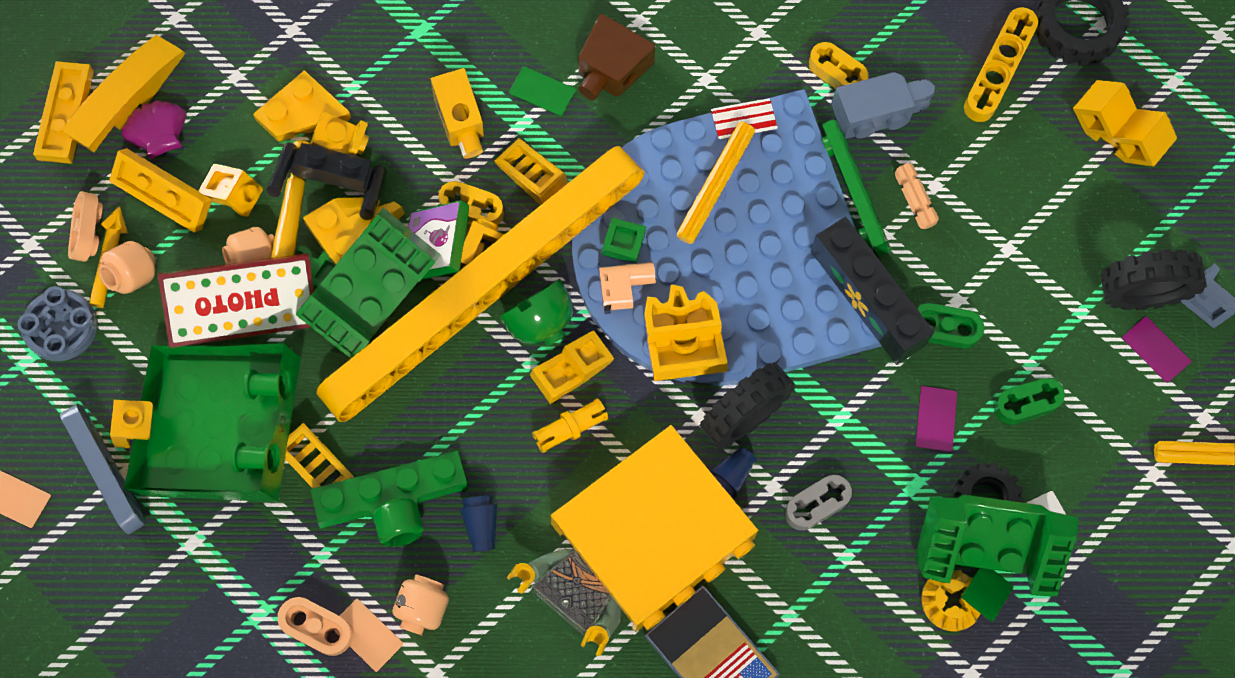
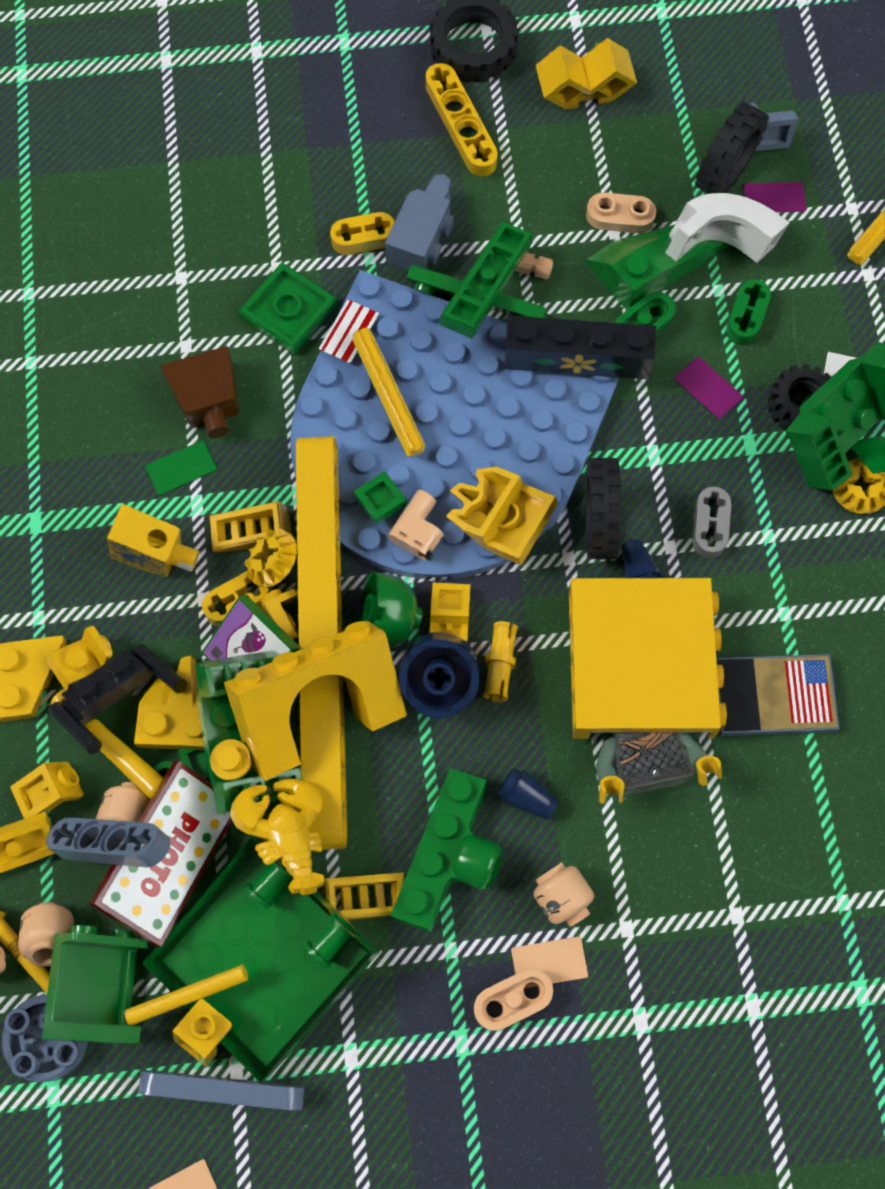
camera: 50 degrees left, 0 degrees up
(108, 326) = (92, 986): none -> green panel
(148, 391) = (186, 995): none -> yellow bar
(211, 252) = (108, 836): none -> sand blue beam
(309, 362) = (285, 829): none -> yellow animal
(332, 287) = (230, 759): none -> yellow plate
(393, 270) = (265, 694): none -> yellow arch
(505, 204) = (278, 564): none -> yellow gear
(518, 386) = (420, 686): none -> dark blue brick
(730, 64) = (288, 308): none -> green tile
(869, 181) = (486, 280): none -> green plate
(1018, 299) = (641, 266): none -> green wedge
(1027, 240) = (621, 213): none -> light nougat plate
(1093, 321) = (727, 219): none -> white arch

